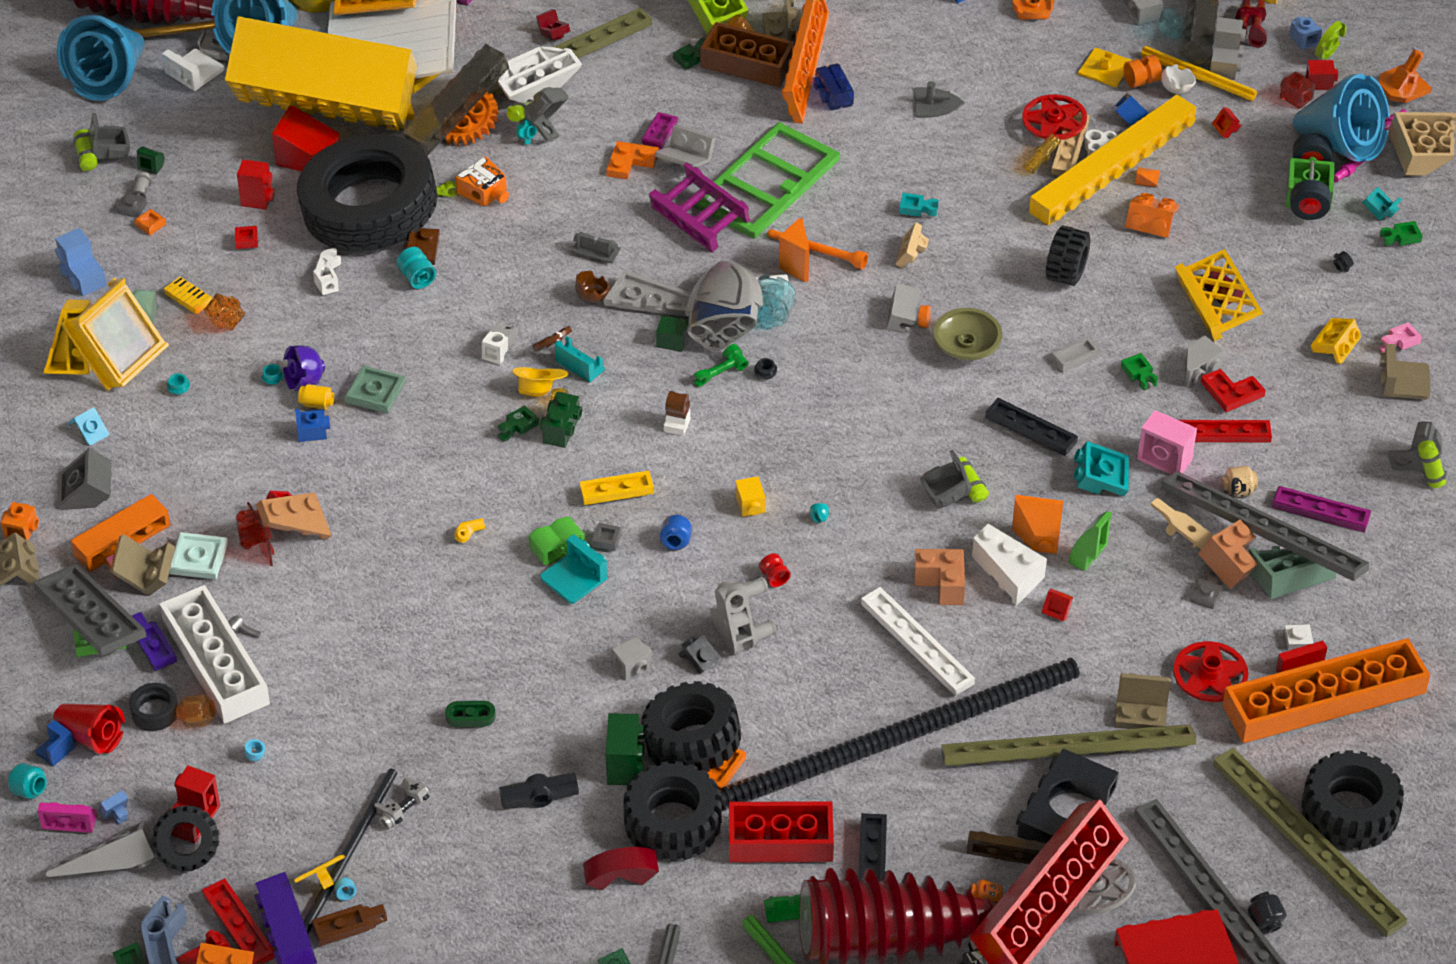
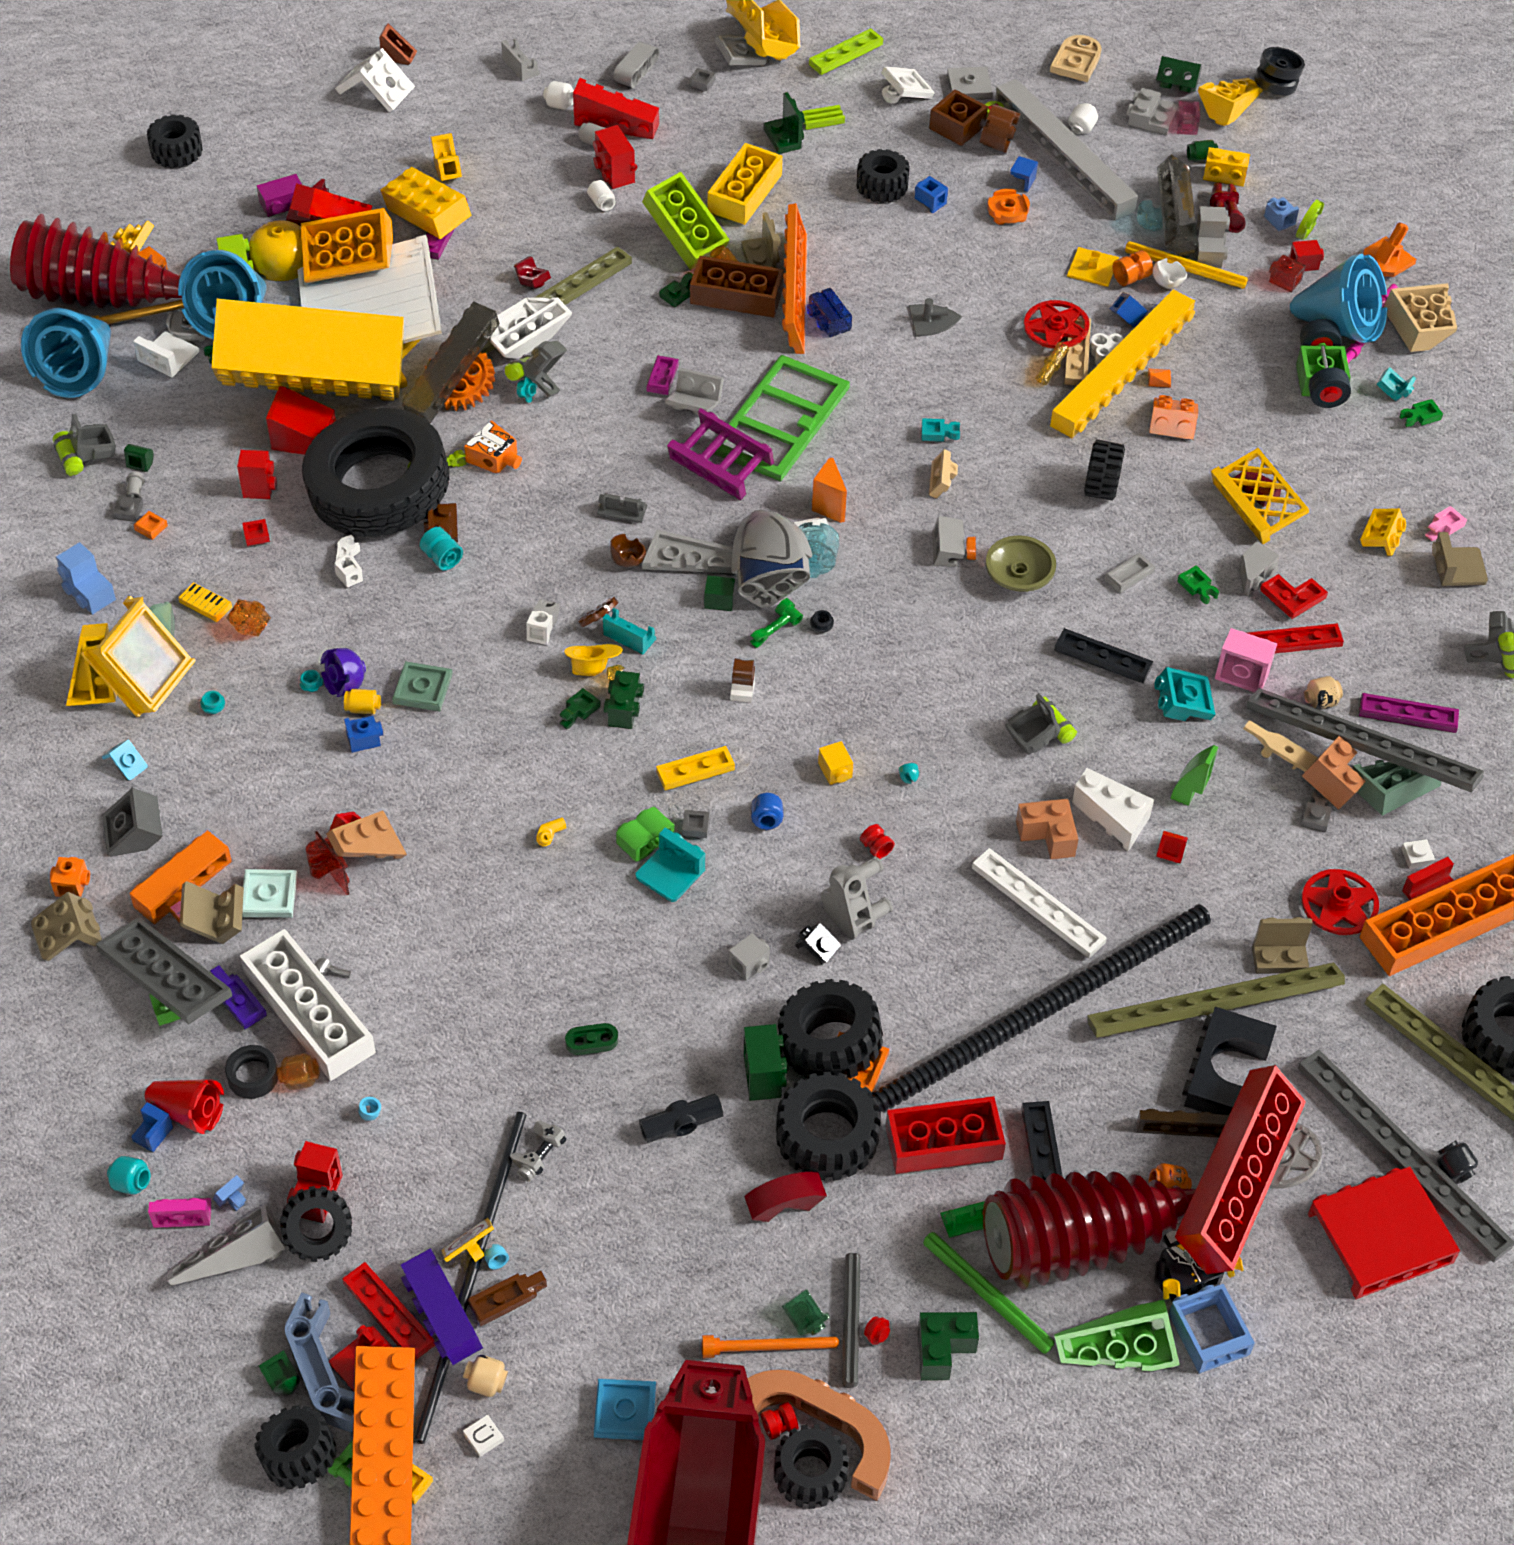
camera: 10 degrees left, 5 degrees up
(630, 154) = (634, 404): orange plate -> none
(857, 259) = (890, 493): orange piece -> none
(1038, 522) = (1135, 760): orange slope -> none
(1226, 122) = (1225, 314): red tile -> none
(1343, 261) = (1371, 448): black plate -> none

